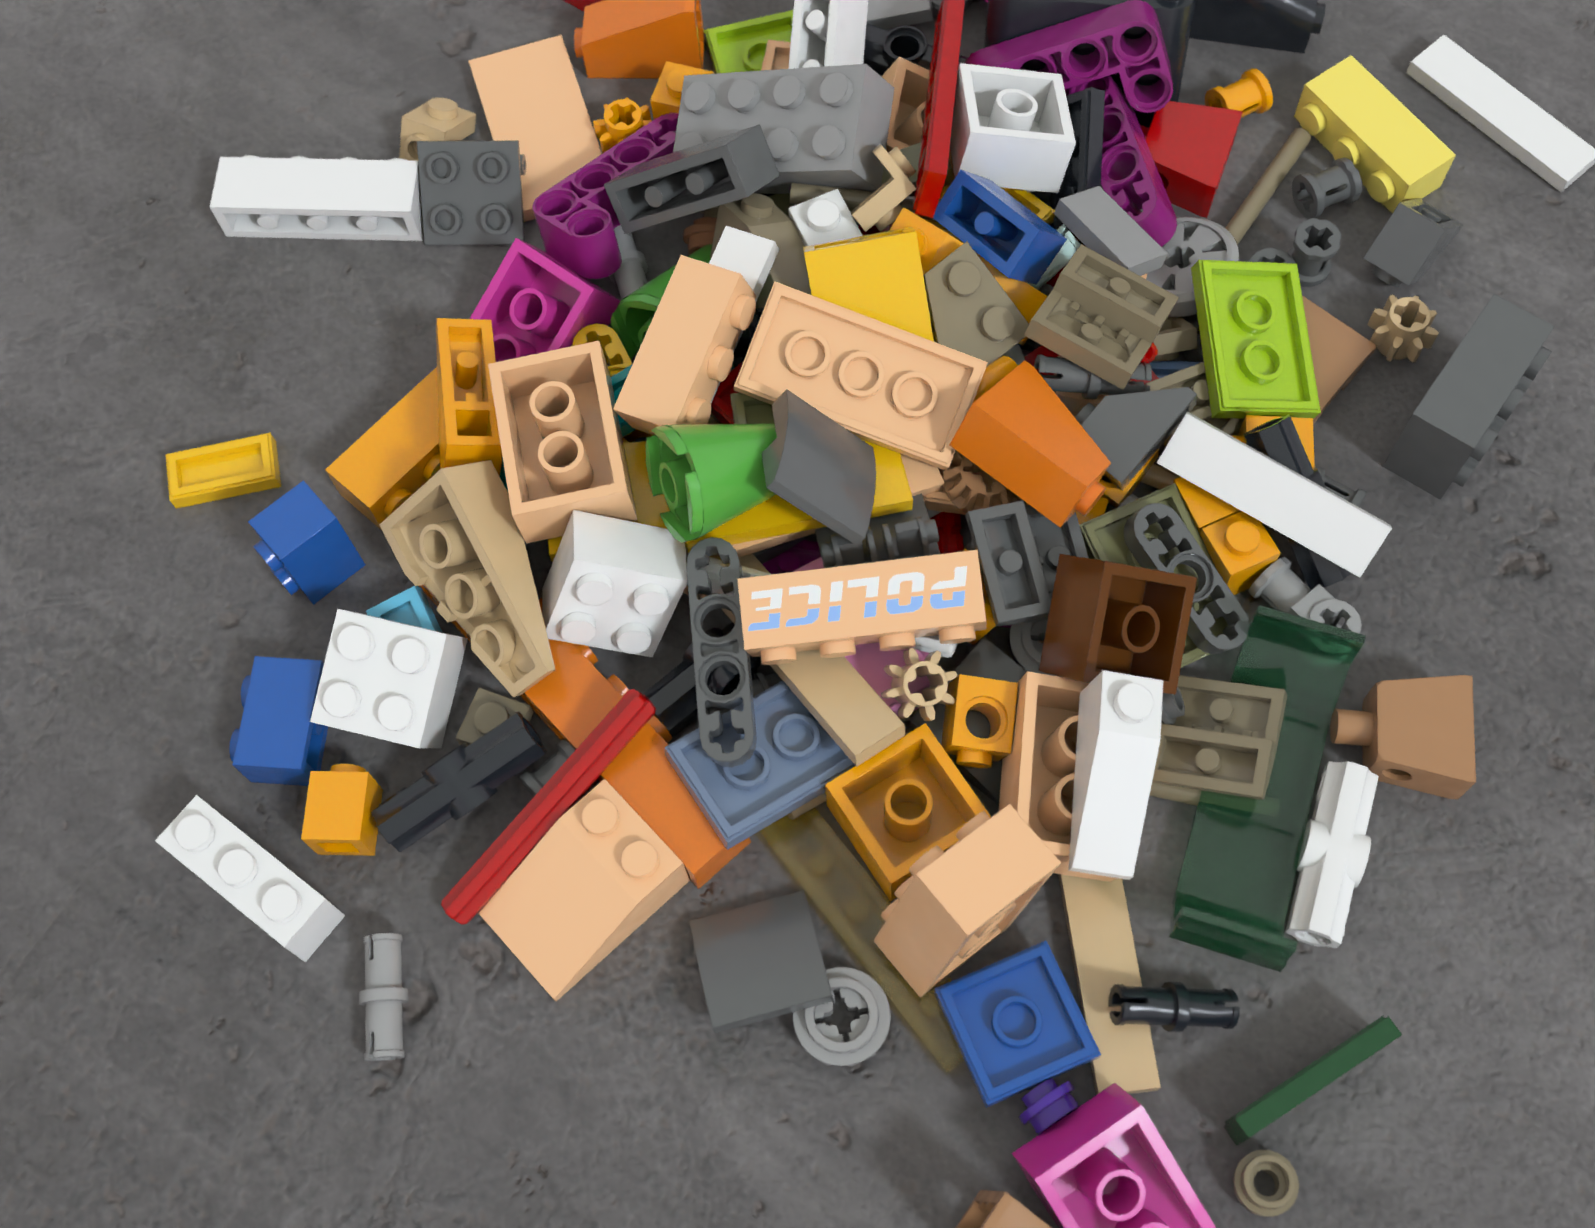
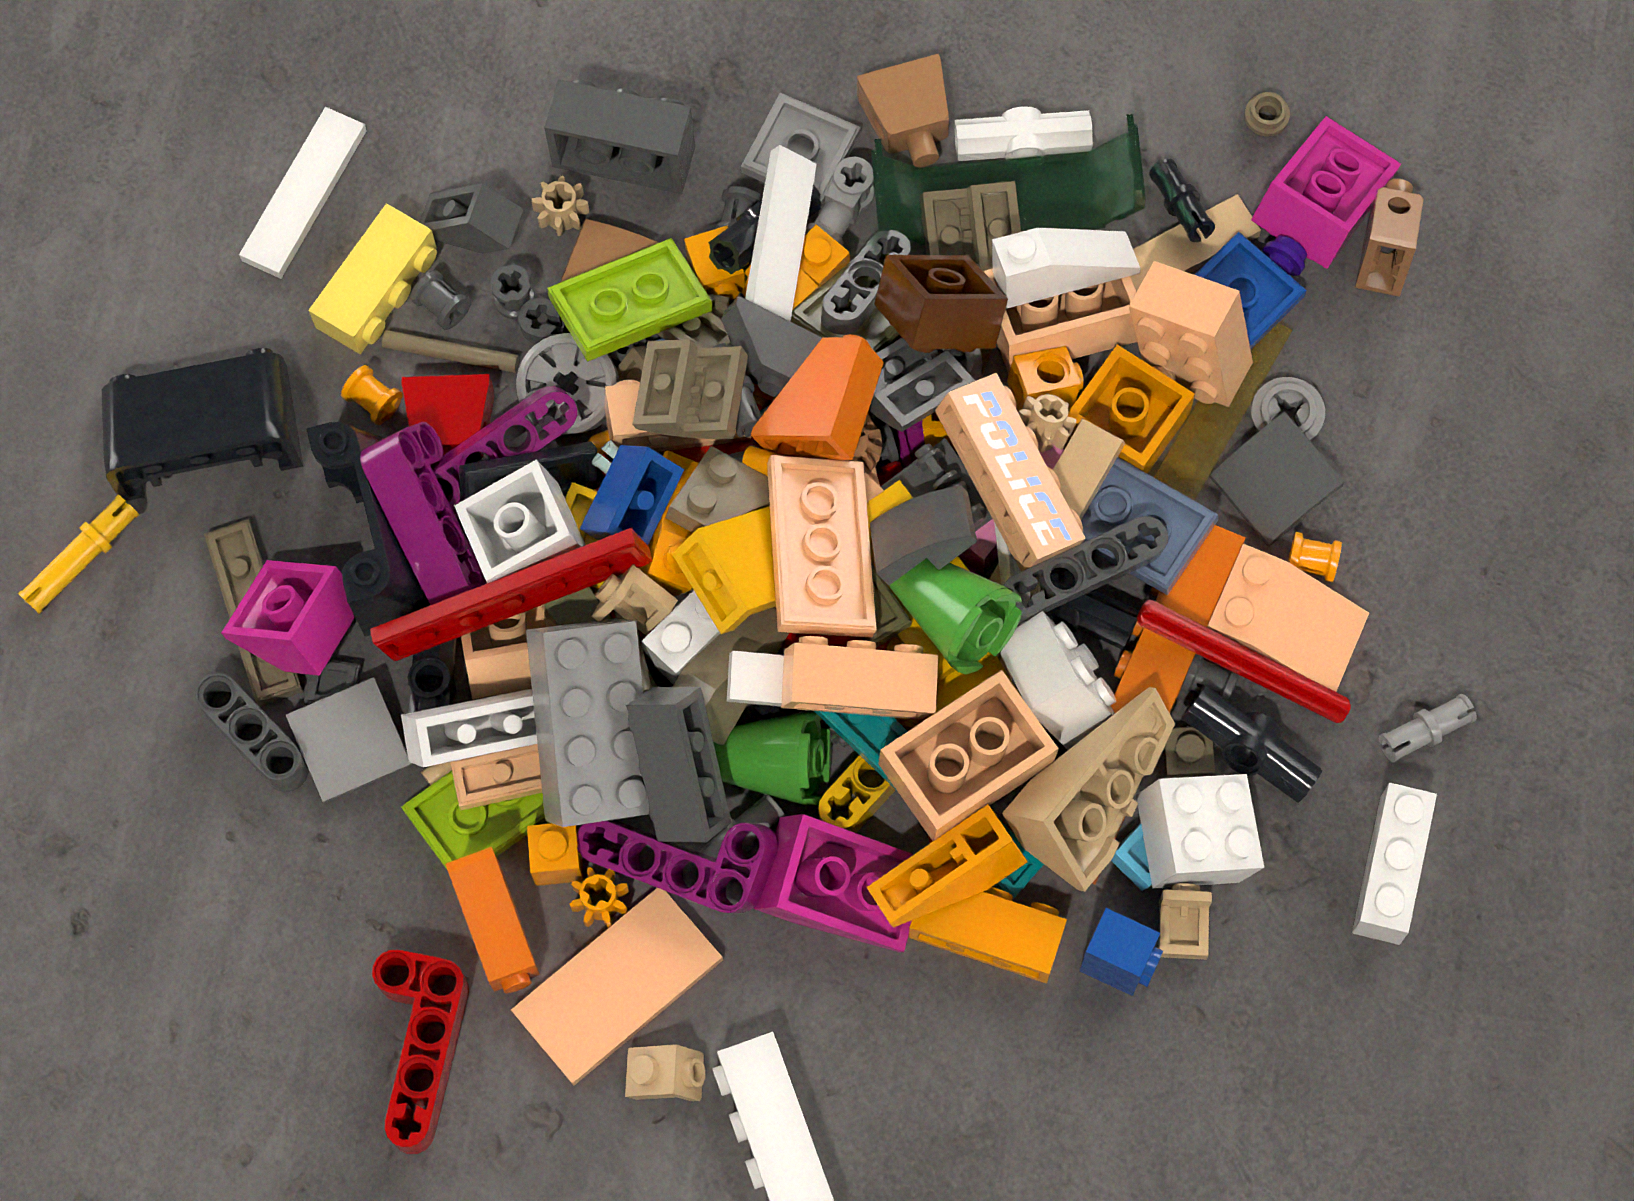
camera: 115 degrees left, 5 degrees up
(223, 470) = (1071, 1089): yellow tile -> none
(275, 730) = (1265, 908): blue brick -> none
(303, 630) = (1184, 922): none -> tan bracket
(340, 811) = (1311, 824): light orange brick -> none
(471, 192) = (721, 998): dark grey hinge -> none
(645, 959) = (1315, 556): none -> light orange bush
(1110, 231) = (597, 418): light grey tile -> none
(1311, 1079) = (1189, 103): dark green tile -> none
(1404, 604) = (806, 132): none -> light grey tile

